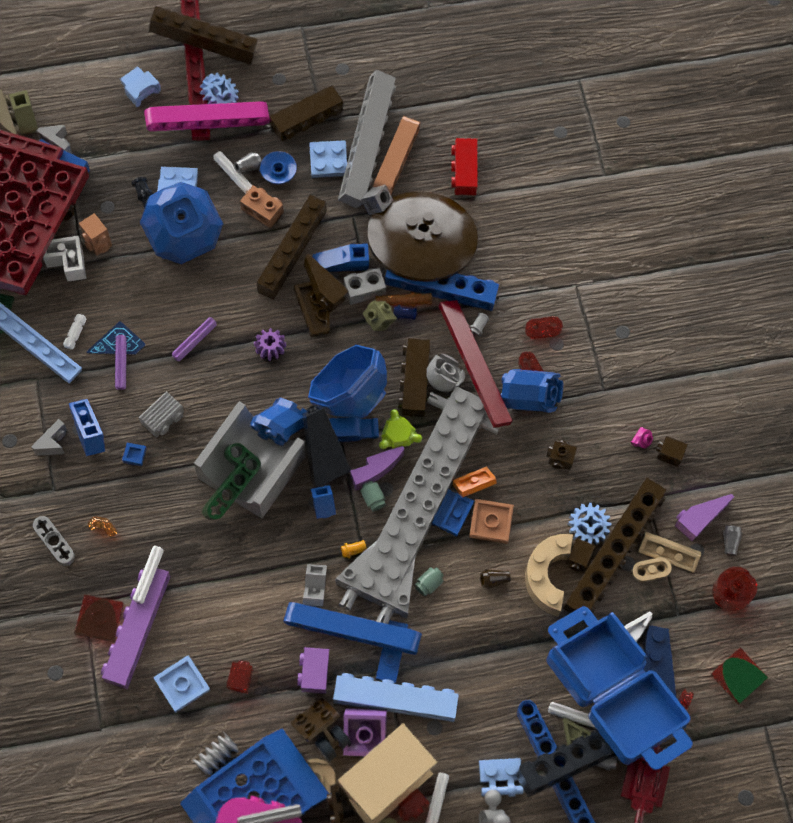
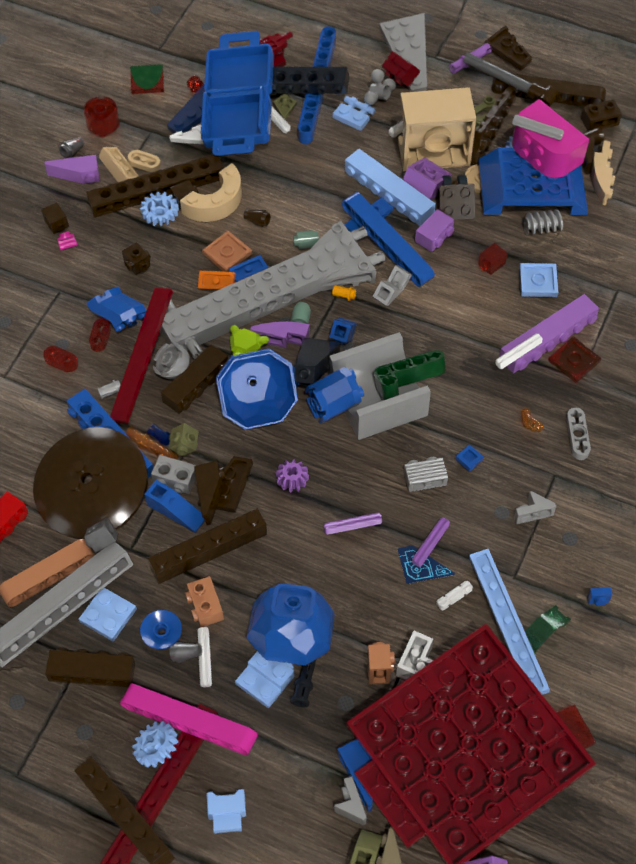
camera: 140 degrees left, 10 degrees down
(87, 427) = (495, 502): blue slope -> none

